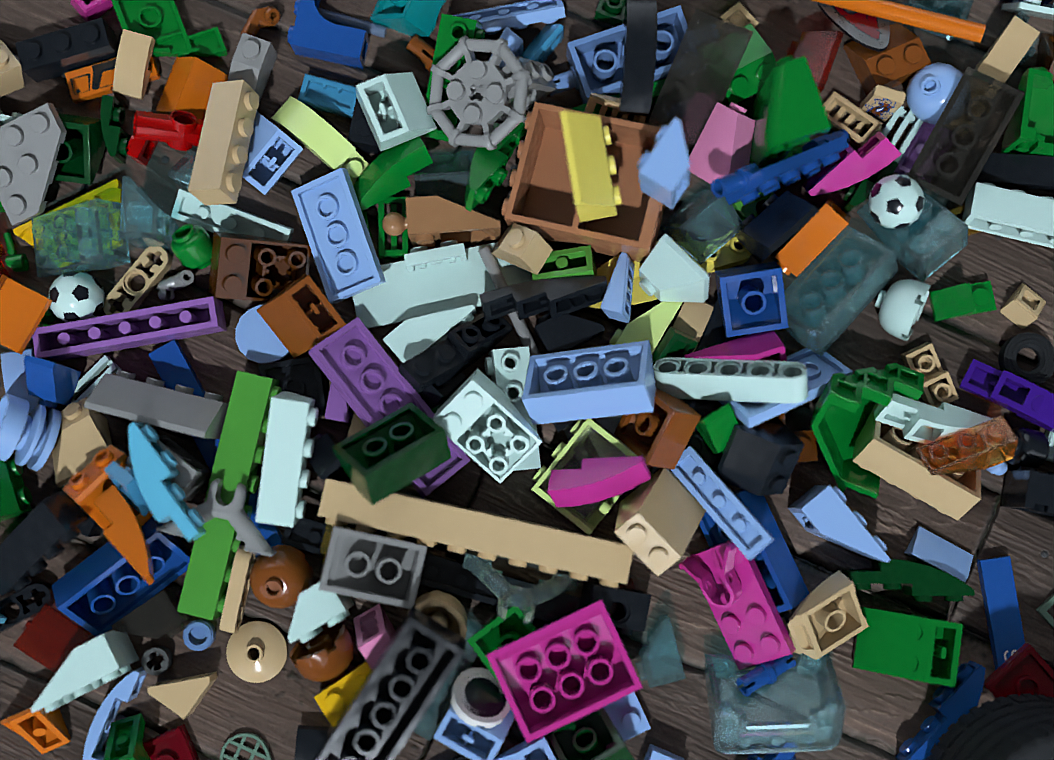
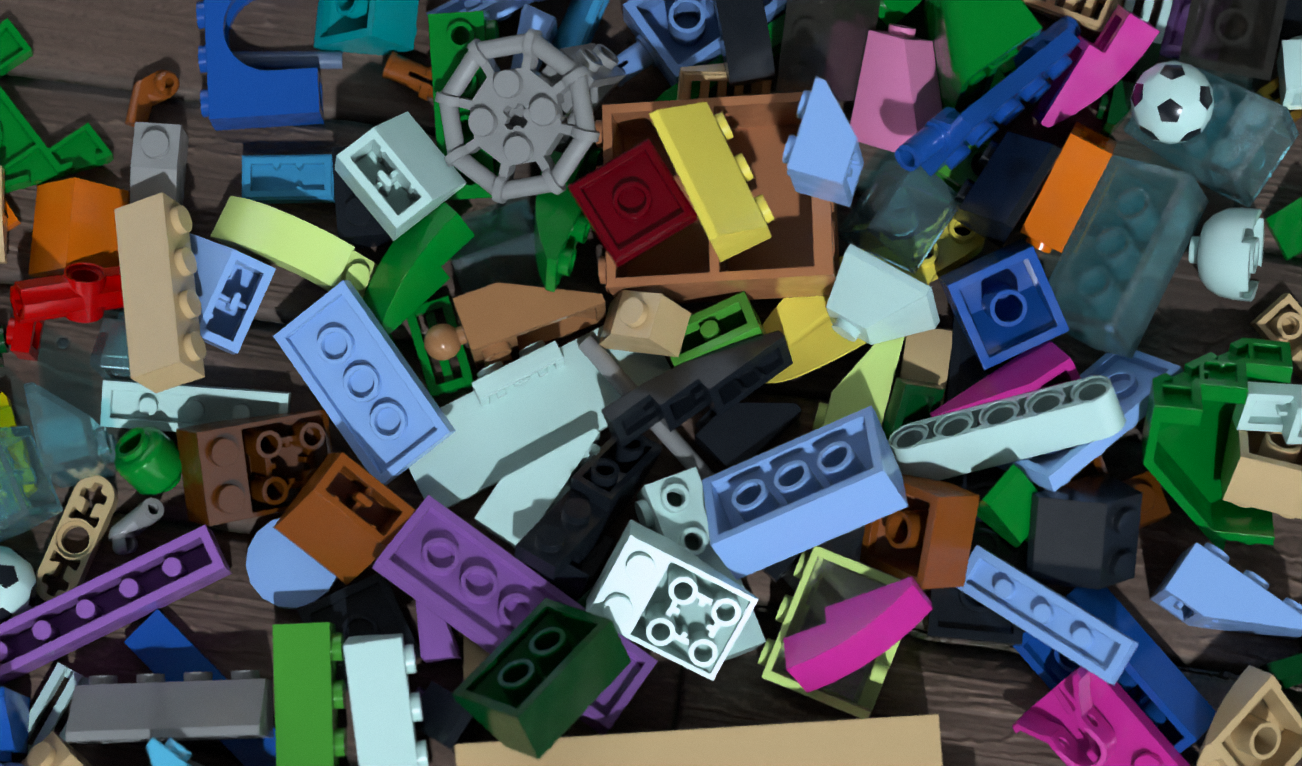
camera: 15 degrees left, 5 degrees down
(535, 168) = (632, 202): none -> dark red tile
(618, 295) = (806, 347): light blue slope -> none
(659, 520) = (963, 665): tan slope -> none

